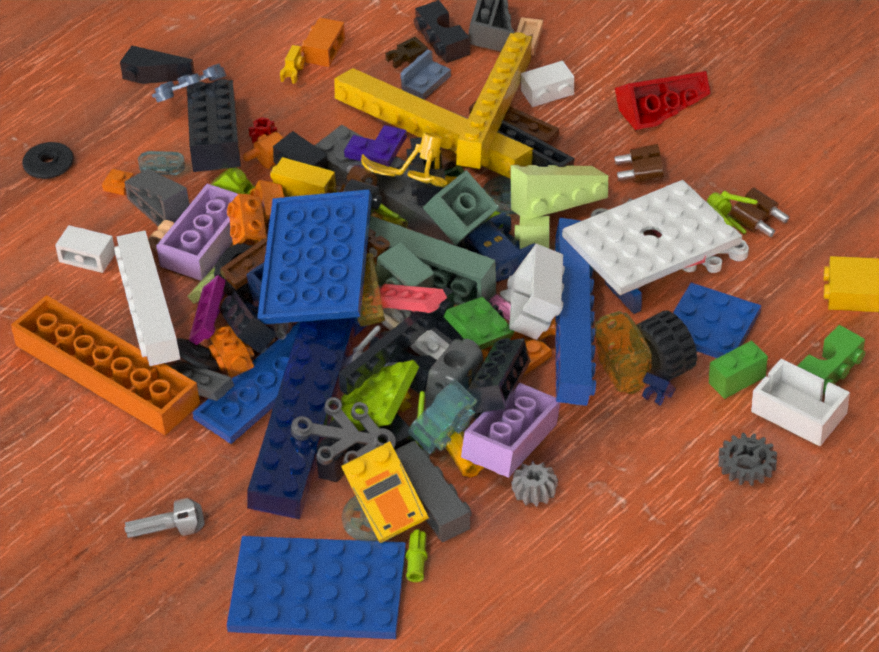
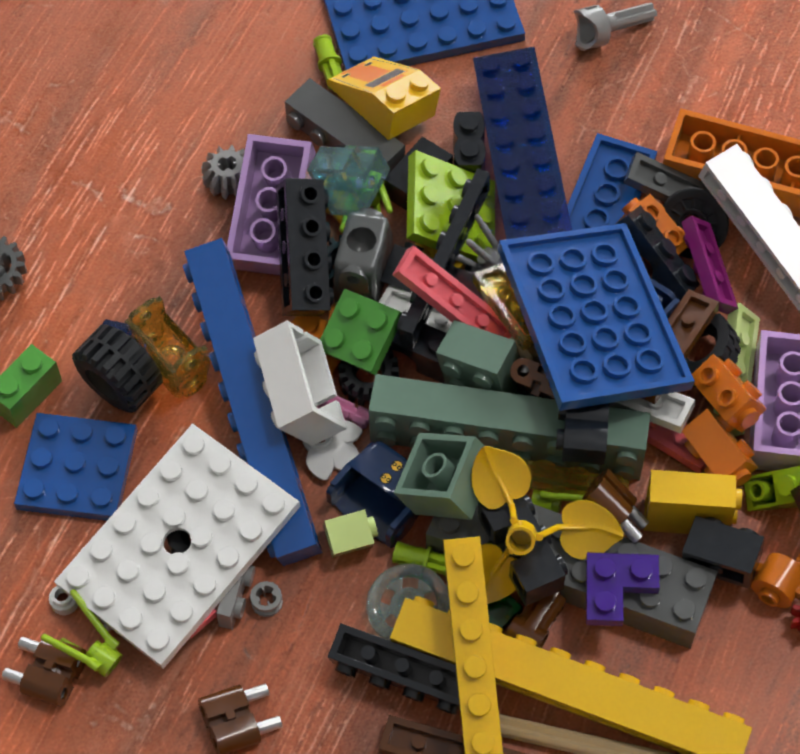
camera: 160 degrees right, 15 degrees up
(347, 434) = (453, 127): flat silver plant -> none
(554, 188) = (332, 596): yellowish green wedge -> none

